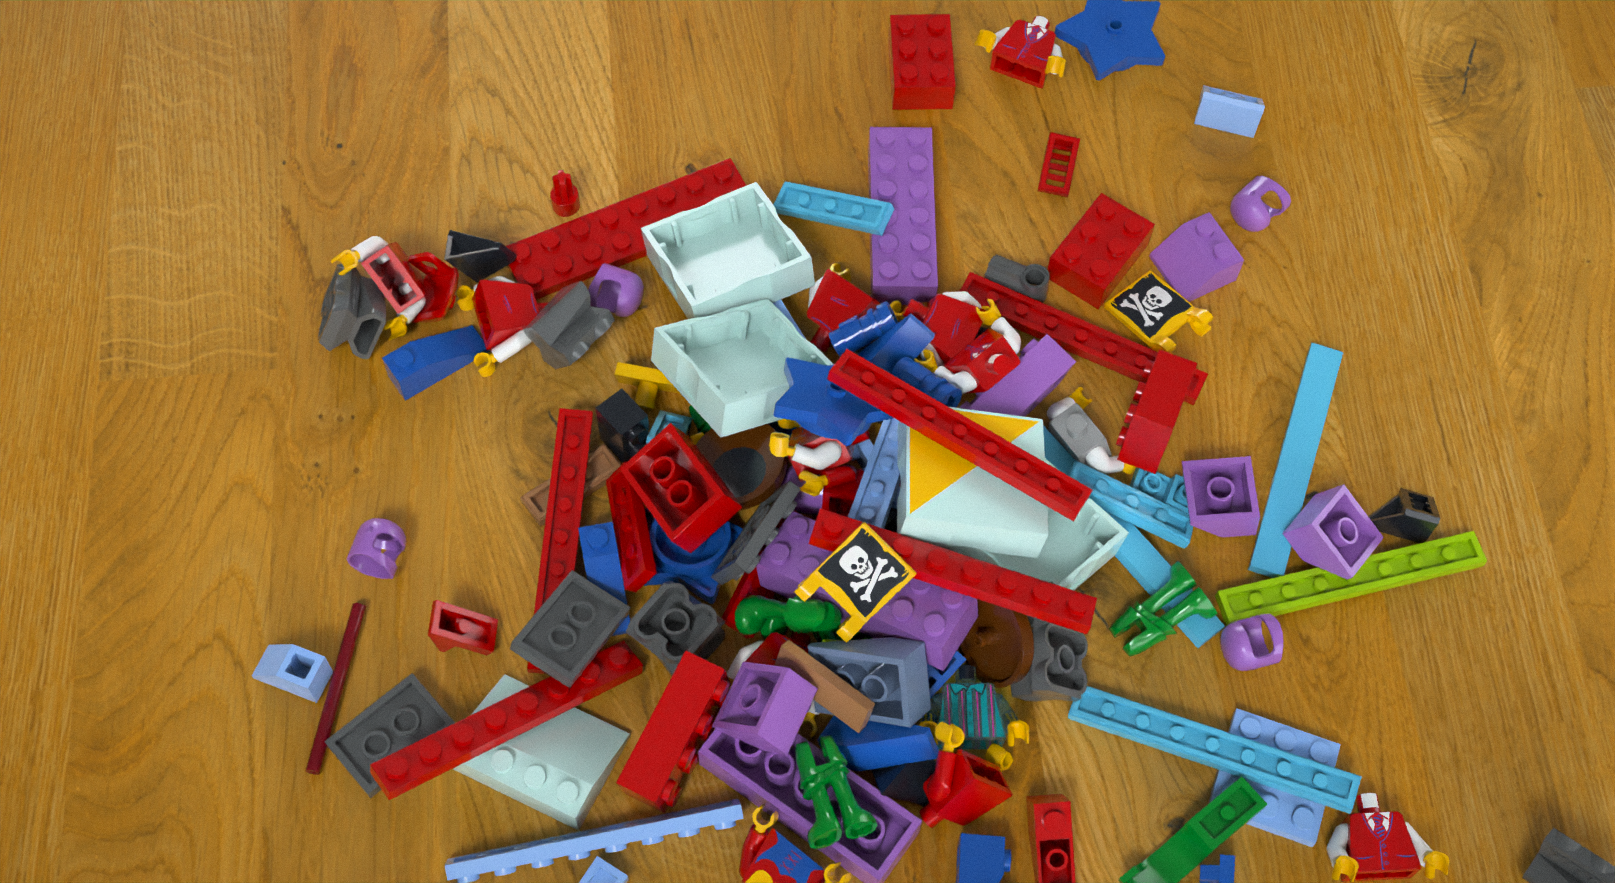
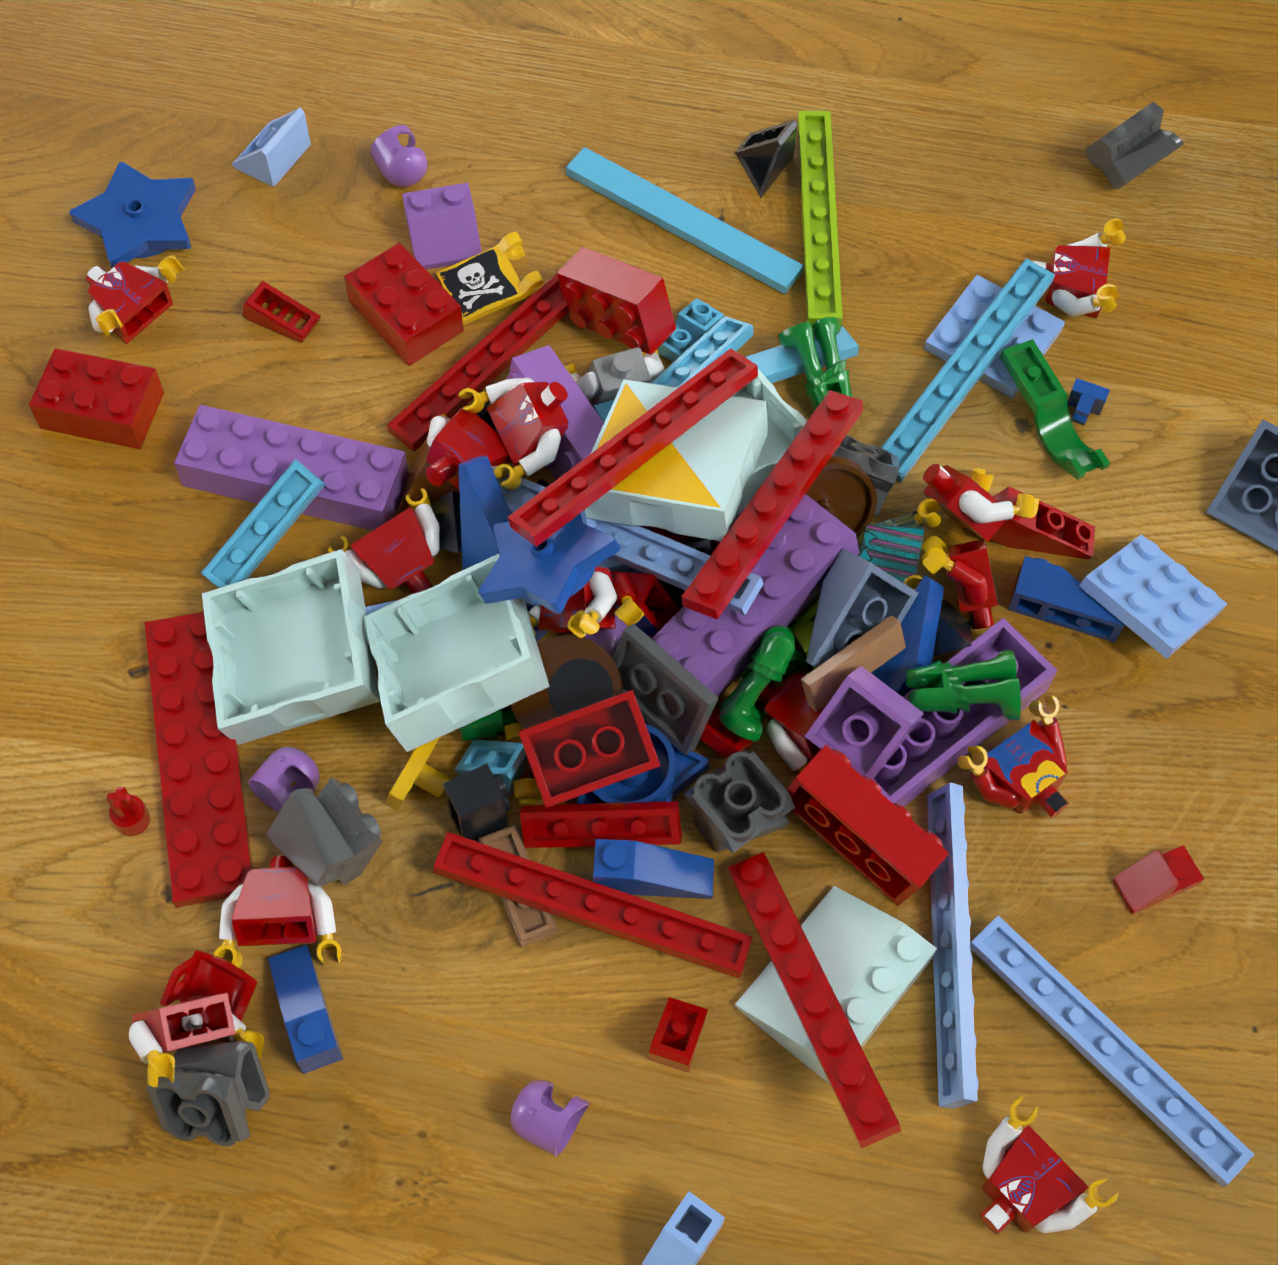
camera: 75 degrees left, 0 degrees up
(335, 689) = (727, 1208): dark red piece -> none
(385, 727) = (785, 1142): dark grey plate -> none
(476, 256) = (179, 928): black slope -> none
(570, 628) = (718, 907): dark grey plate -> none
(859, 577) = (767, 587): flag -> none
(861, 331) = (442, 527): blue axle -> none
(927, 382) = (537, 478): blue axle -> none
(1019, 277) = (408, 383): dark grey piece -> none
(1046, 768) = (968, 500): none -> torso
(1222, 496) = (716, 277): medium lavender slope -> none
(1245, 646) = (869, 317): medium lavender helmet -> none
(1333, 533) = (775, 210): medium lavender slope -> none

